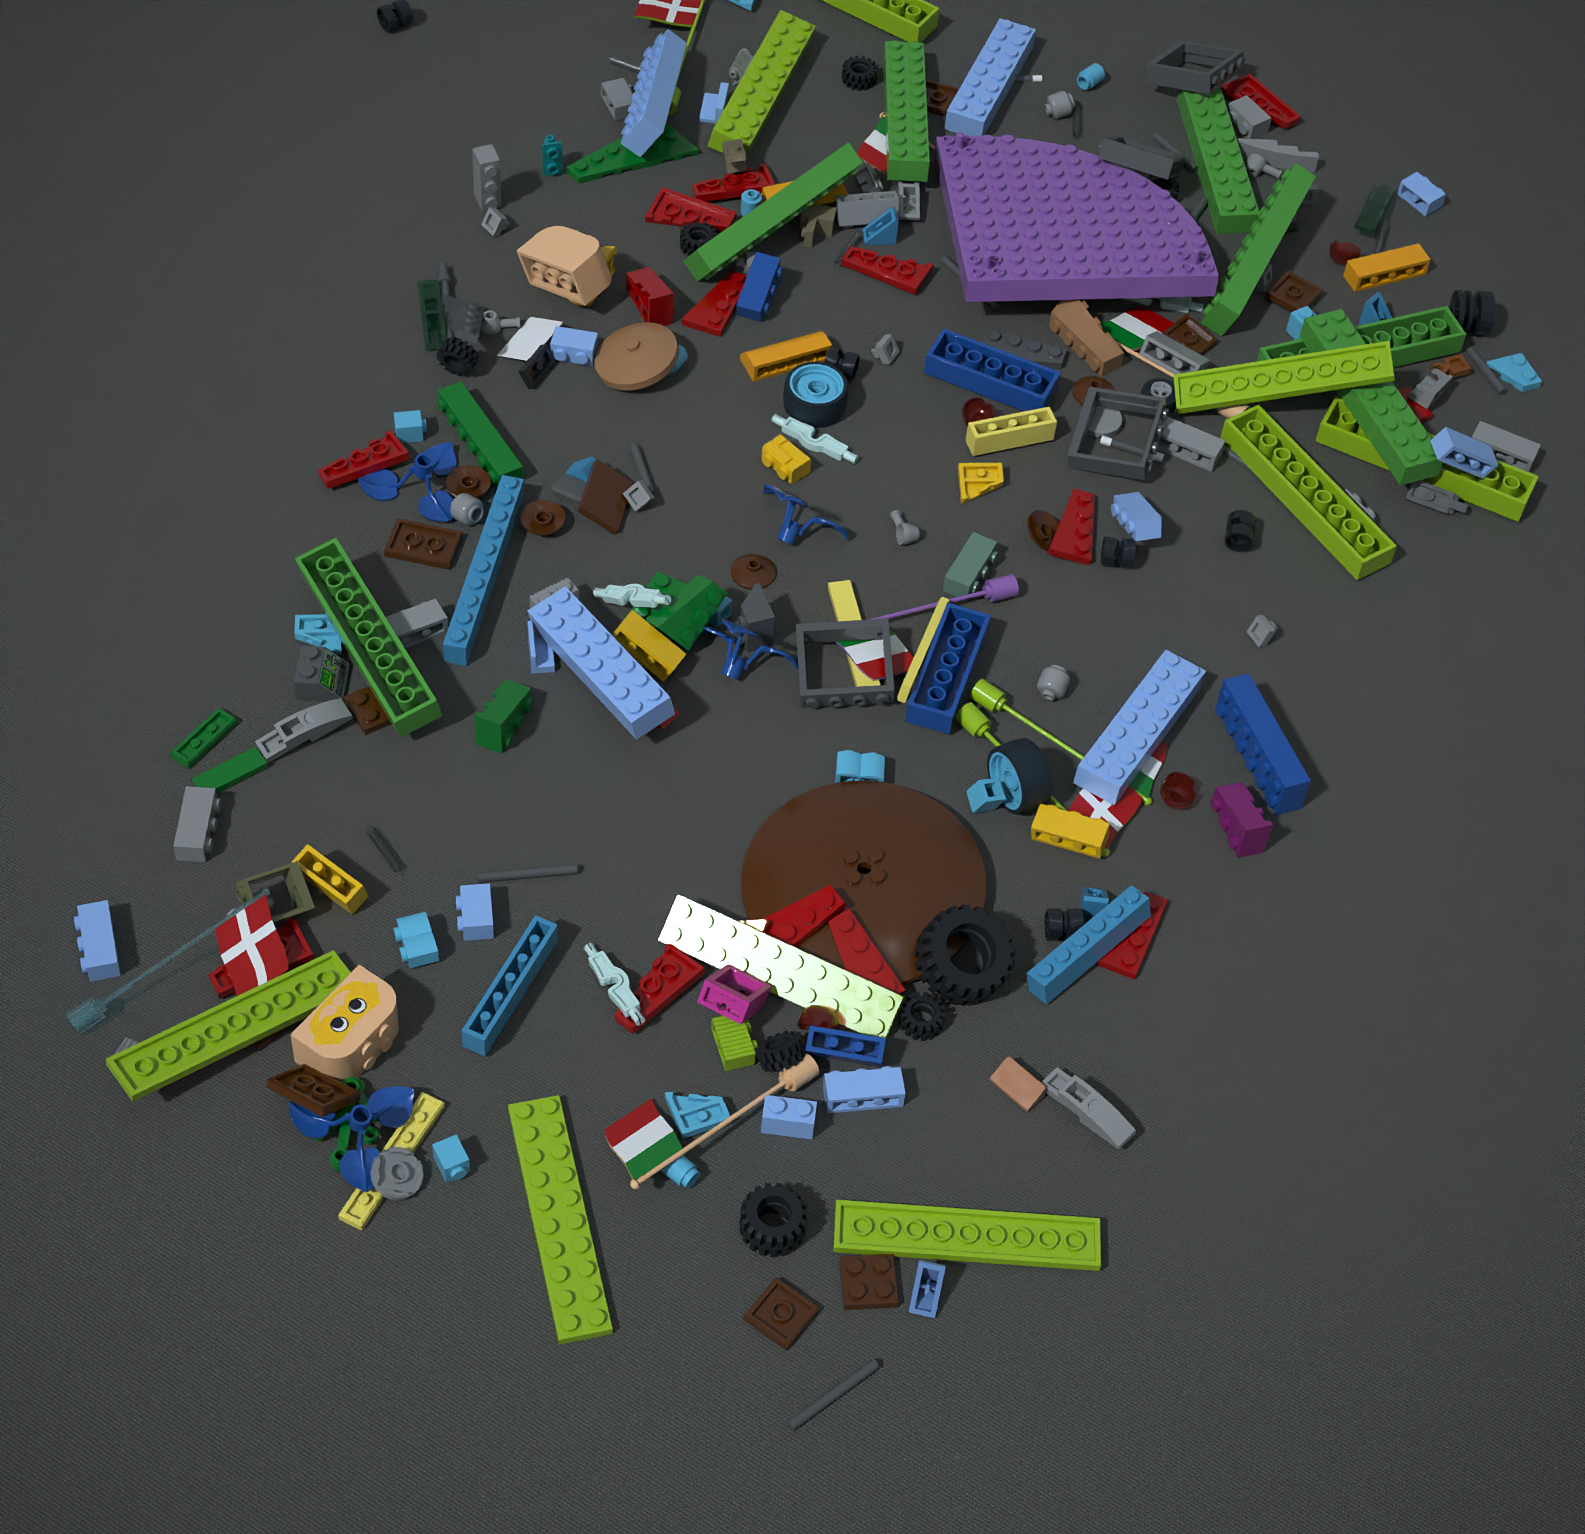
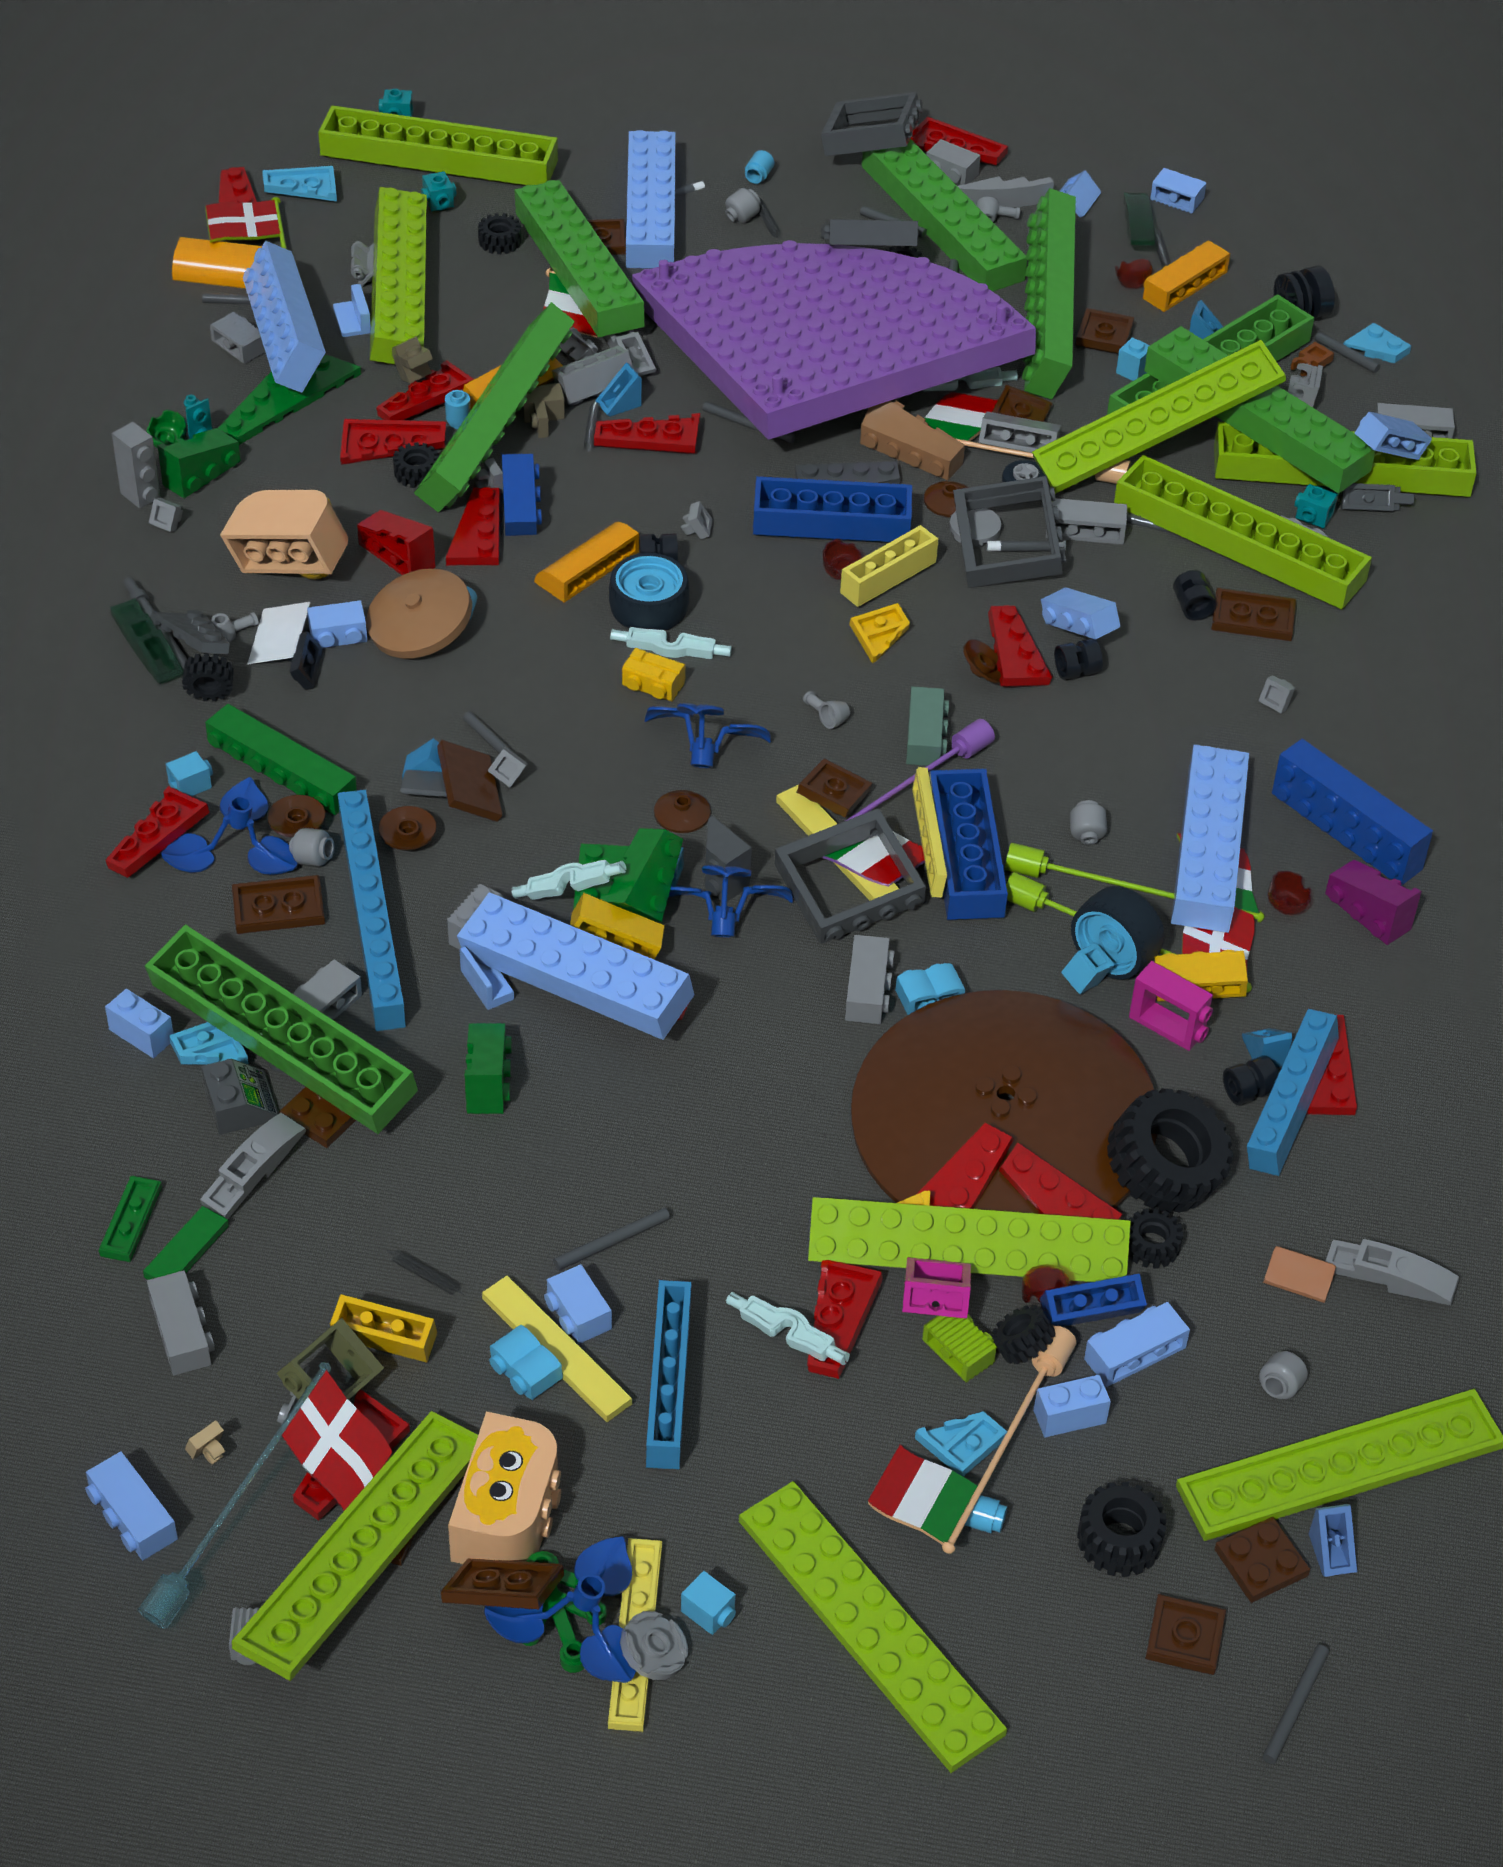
camera: 20 degrees left, 5 degrees down
(170, 915) = (207, 1443): none -> tan tile
(279, 598) = (139, 1023): none -> light blue brick
(447, 938) = (577, 1366): none -> light yellow tile
(528, 157) = (167, 428): none -> green hair
(538, 187) = (197, 461): none -> green wedge
(628, 33) = (212, 262): none -> light orange brick
(817, 746) = (869, 979): none -> light grey brick
(829, 25) = (439, 191): none -> teal brick
(873, 591) = (834, 788): none -> reddish brown plate
(959, 1153) = (1283, 1375): none -> light grey head
(1031, 846) = (1181, 993): none -> dark pink window
(1282, 561) = (1254, 614): none -> reddish brown tile
(1337, 173) = (1084, 190): none -> light blue panel
(1381, 489) = (1315, 505): none -> teal brick

